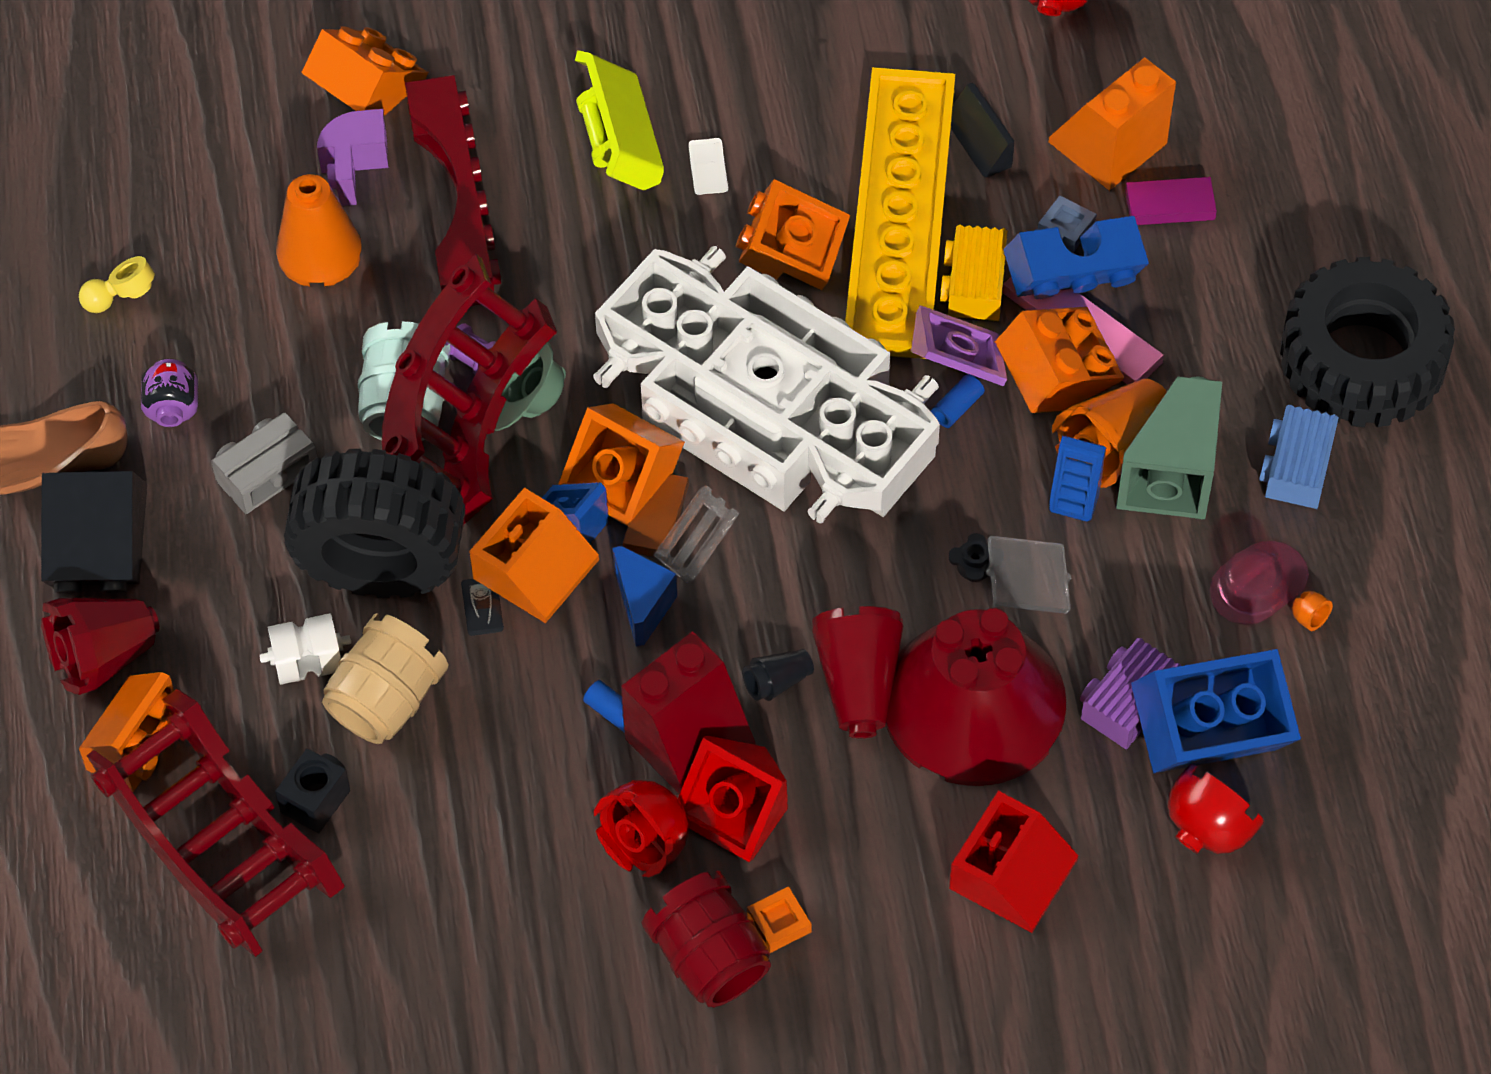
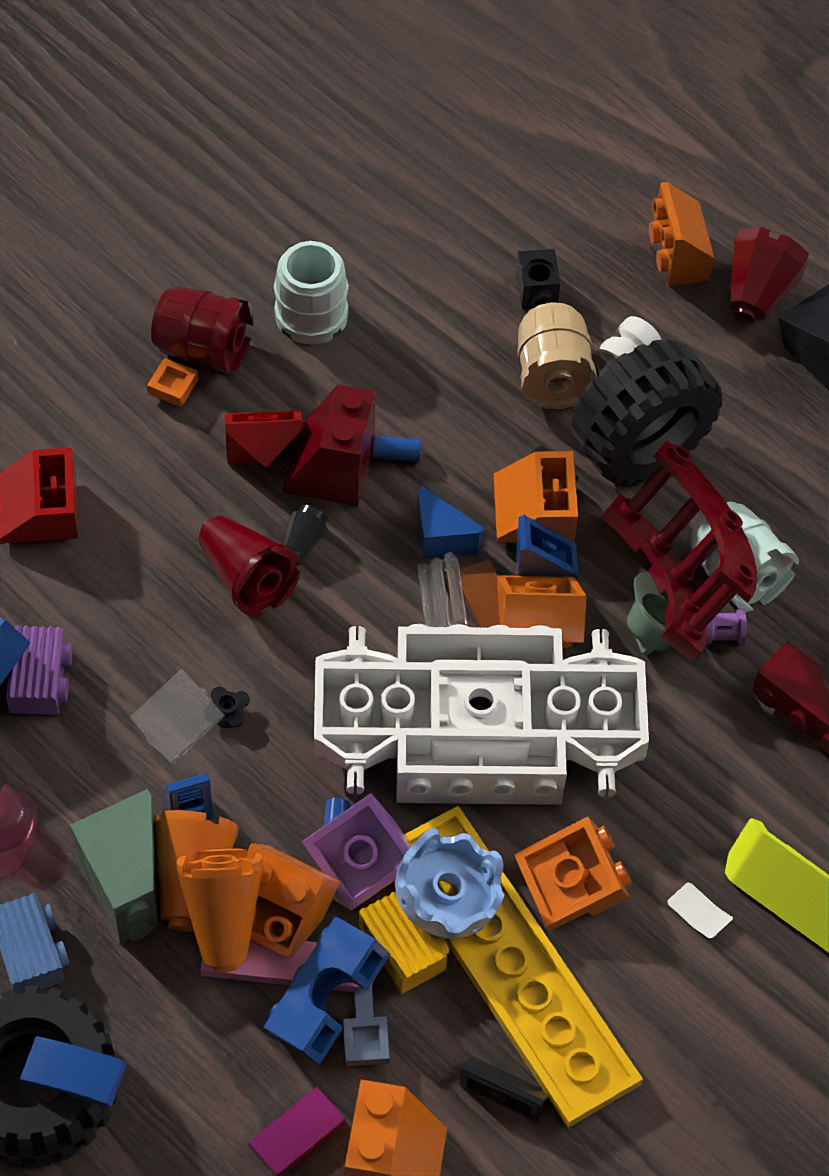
camera: 140 degrees right, 0 degrees up
(248, 804) = (572, 246): dark red fence -> none
(263, 462) = (782, 456): light grey brick -> none
(565, 905) = (311, 293): none -> light aqua piece
(642, 826) = (304, 376): red cylinder -> none
(913, 236) = (464, 865): none -> light blue plate
(976, 700) = (151, 607): dark red cone -> none
(1113, 351) = (221, 903): none -> orange cone
(1349, 276) = (74, 1071): none -> blue slope

